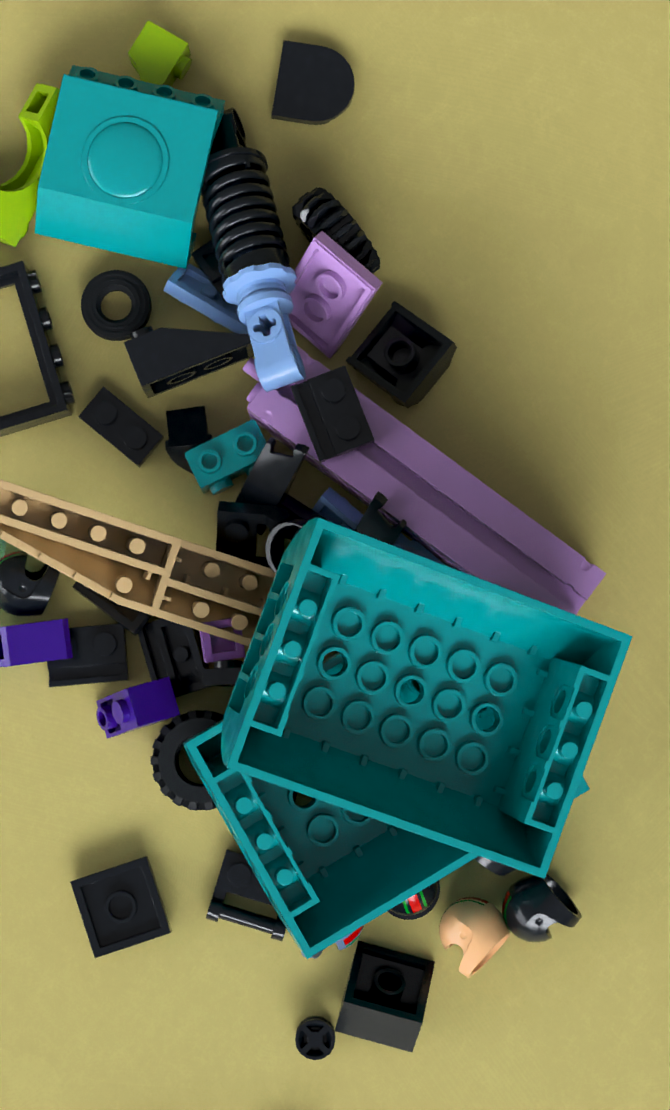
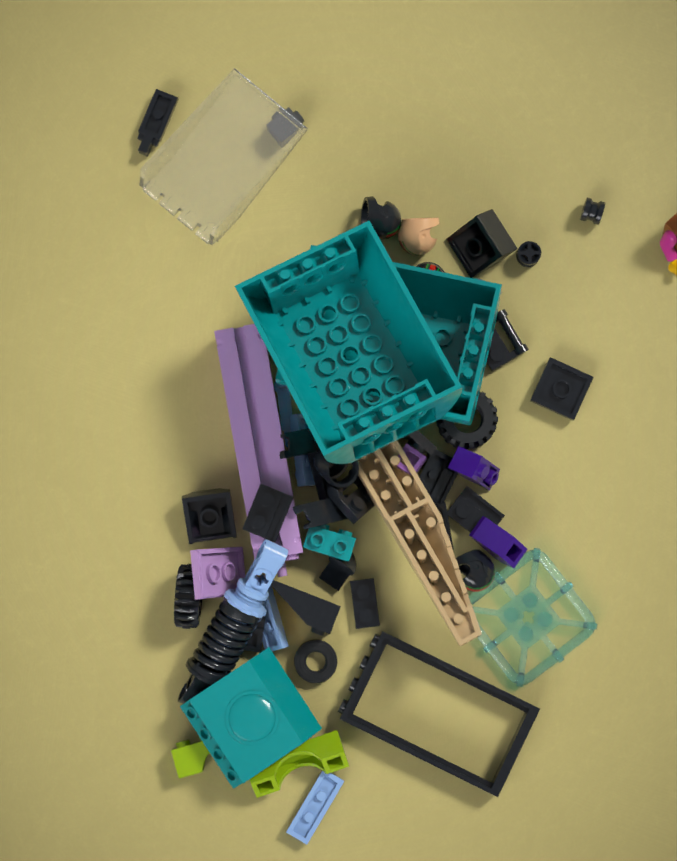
camera: 140 degrees left, 0 degrees up
(312, 84) = (131, 680): black tile -> none

